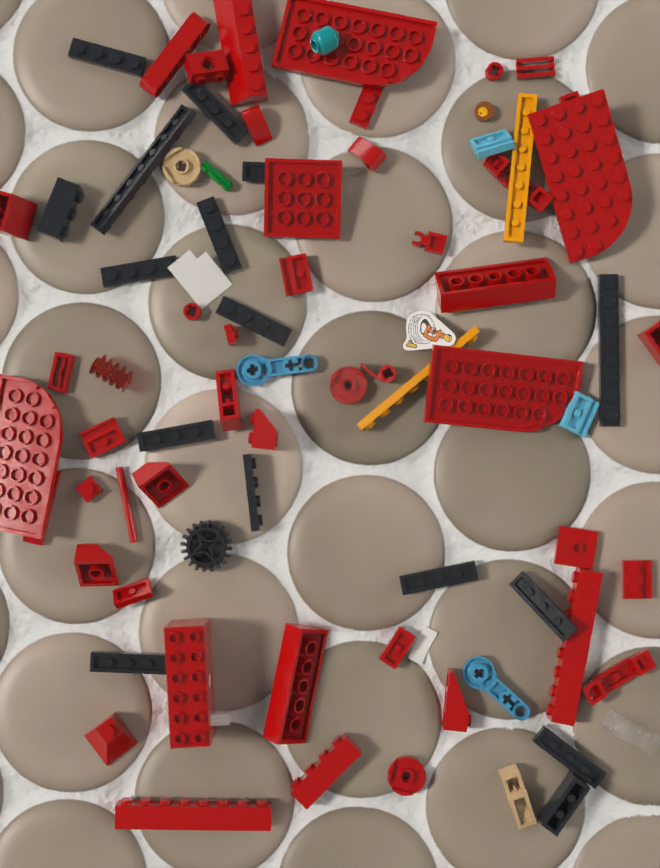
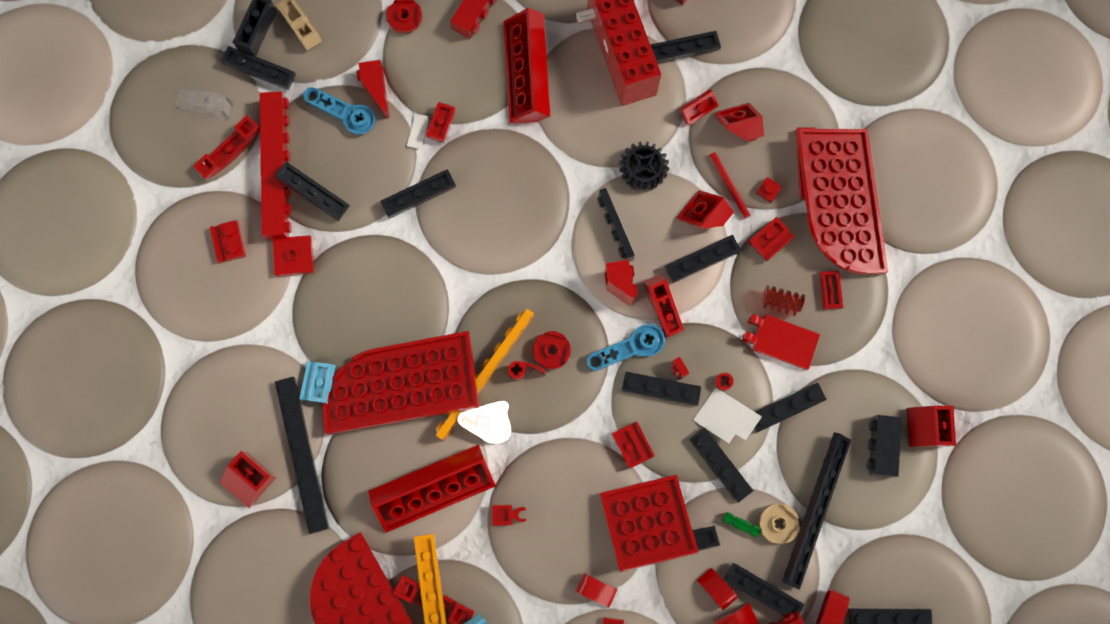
camera: 165 degrees right, 10 degrees down
(123, 335) = (782, 340): none -> red tile

